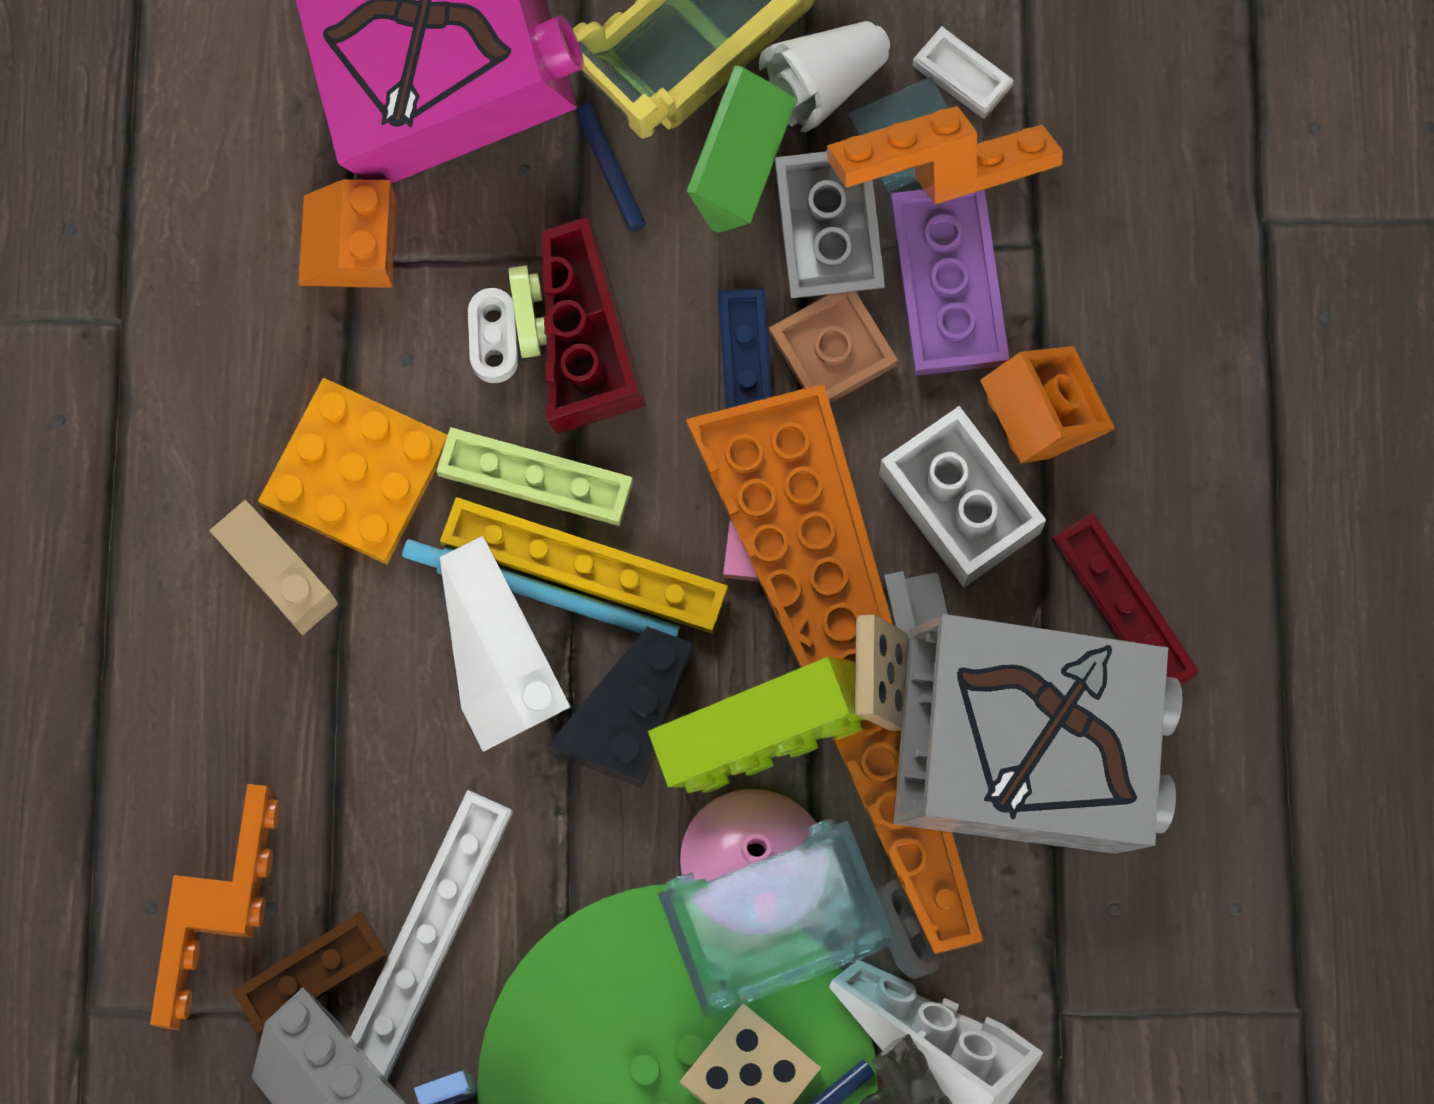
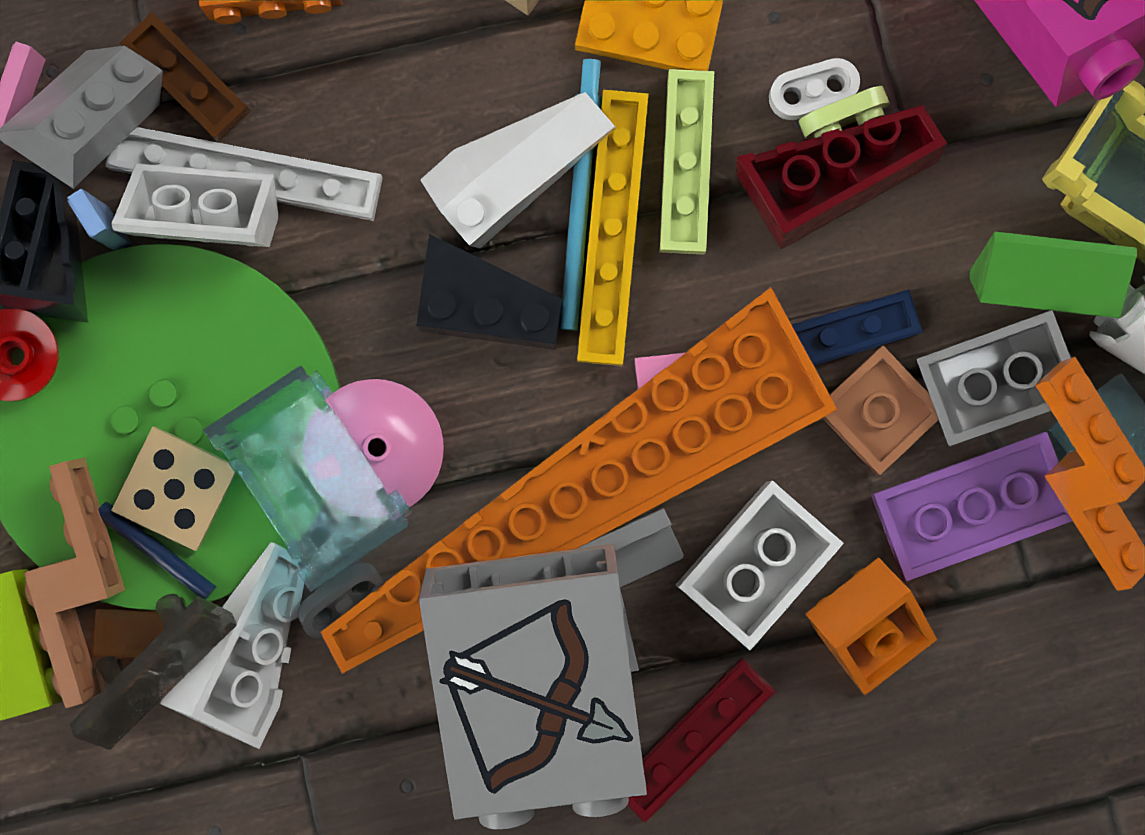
camera: 75 degrees right, 10 degrees up
(456, 978) = (198, 205): none -> white slope
(610, 167) = (1009, 158): dark blue bar -> none
(759, 725) = (486, 427): lime brick -> none
(880, 671) = (559, 525): tan tile -> none

